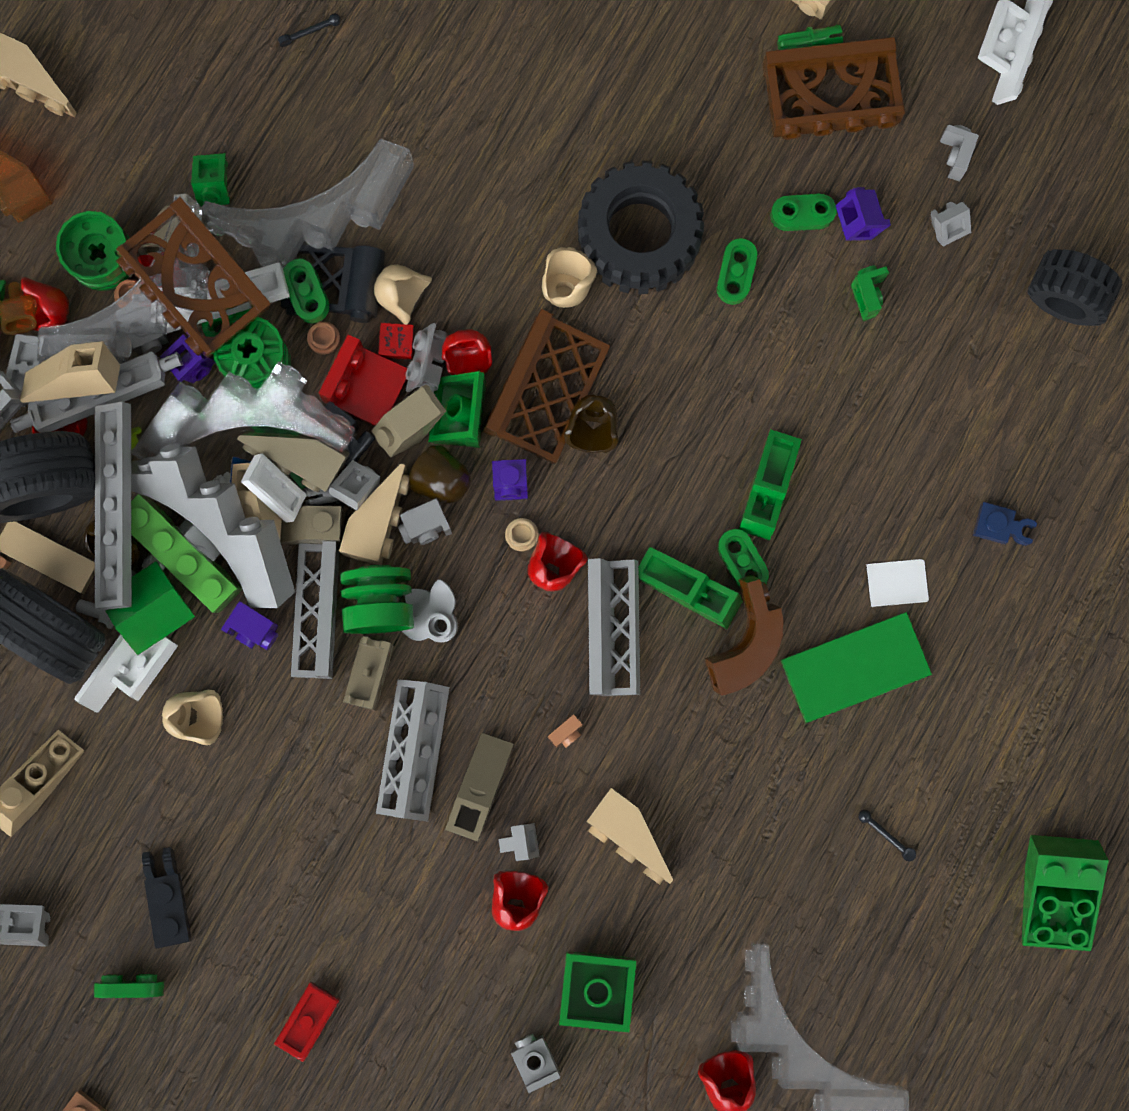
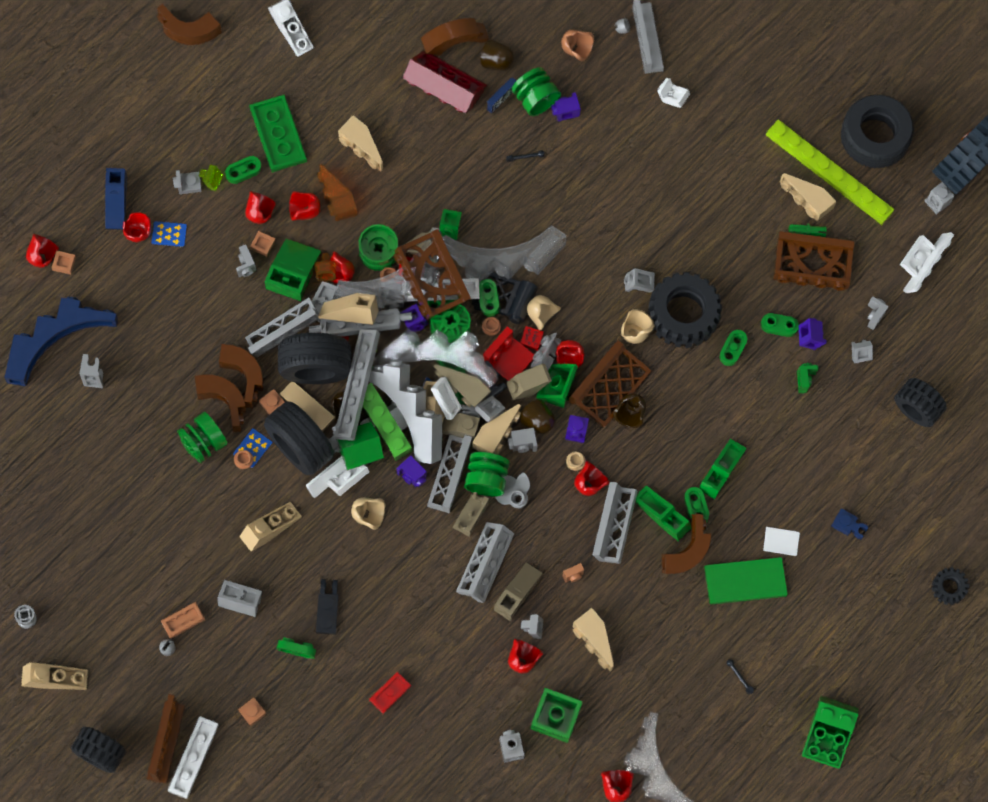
camera: 10 degrees right, 10 degrees down
(552, 196) = (639, 280): none -> light grey bracket

